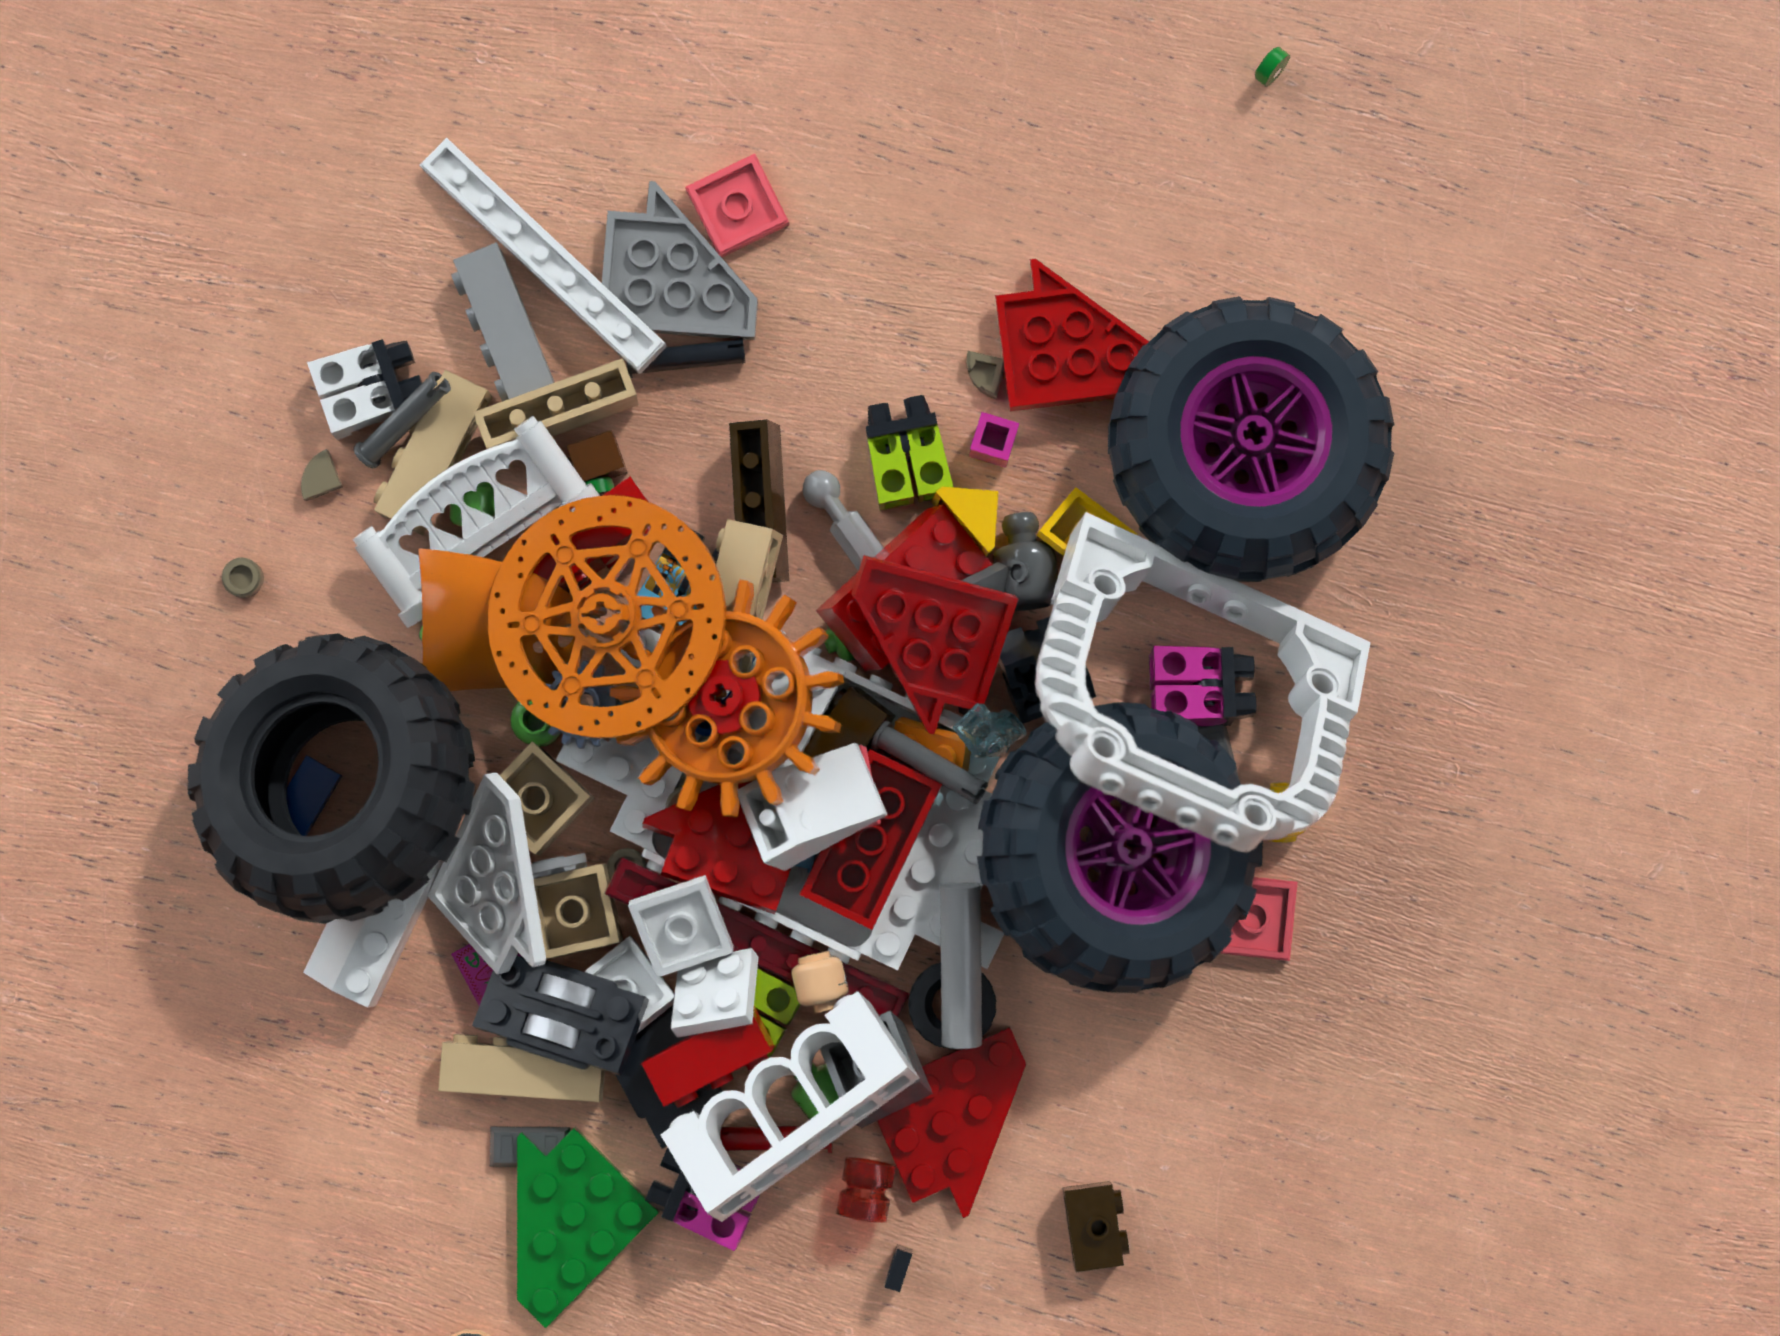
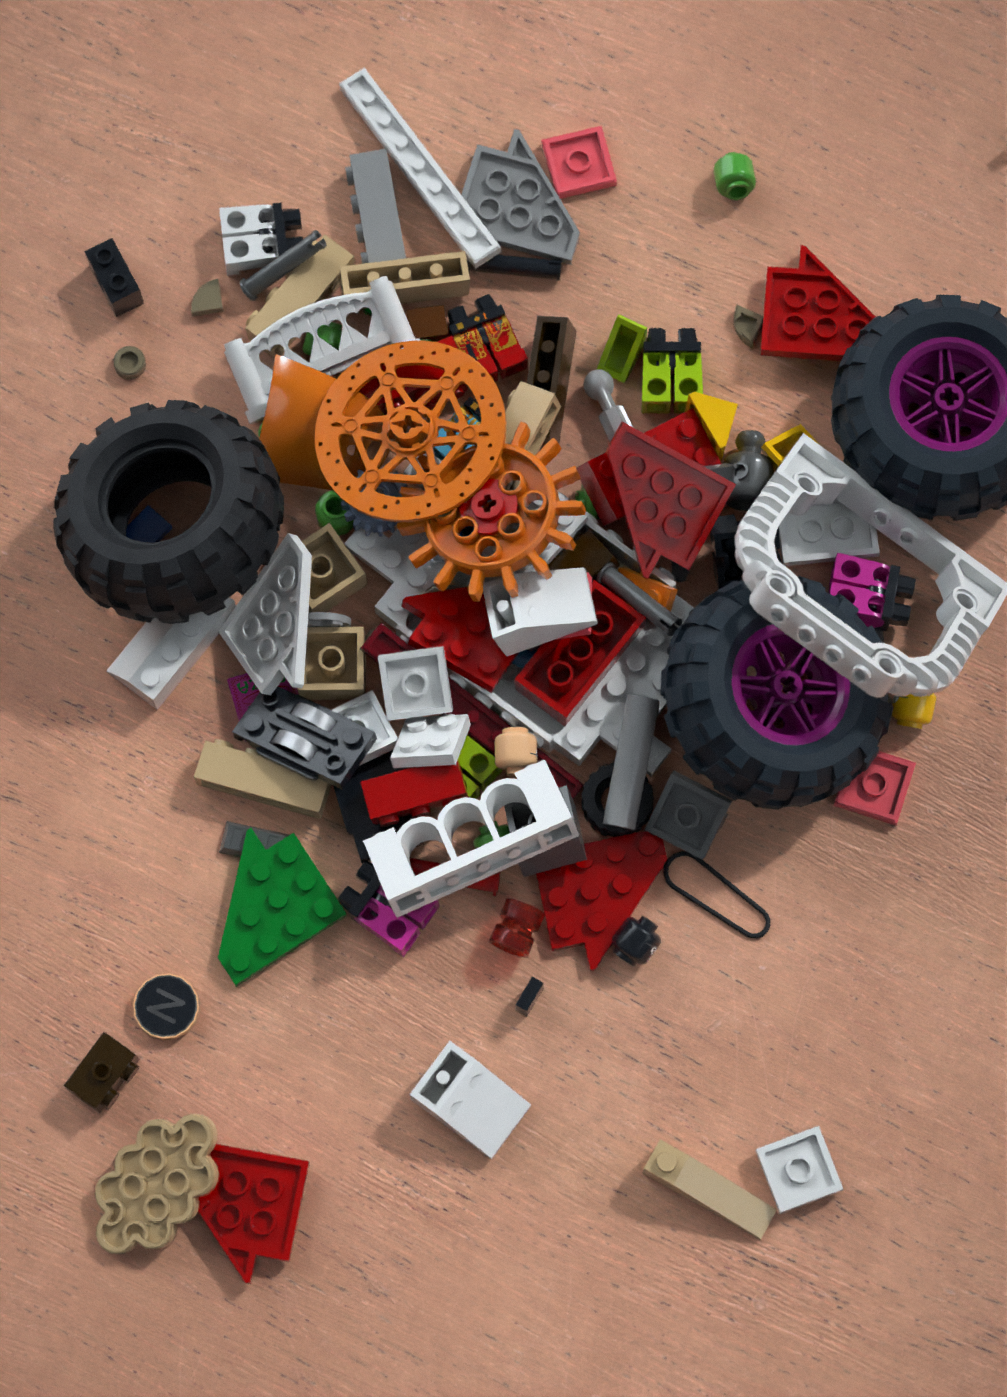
camera: 15 degrees right, 10 degrees down
(198, 475) = (114, 277): none -> black brick
(666, 452) = (486, 331): none -> hips
(840, 439) = (623, 348): none -> lime slope
(931, 186) = (734, 176): none -> bright green head
(989, 732) = (689, 583): clear light blue leg -> none
(993, 439) = (743, 372): dark pink brick -> none
(1010, 1173) = (636, 940): none -> black head
(1041, 1012) = (688, 815): none -> dark grey bracket
(1083, 1109) = (707, 908): none -> black piece
(1094, 1226) = (695, 996): dark brown brick -> none
(1140, 622) = (824, 533): none -> white plate

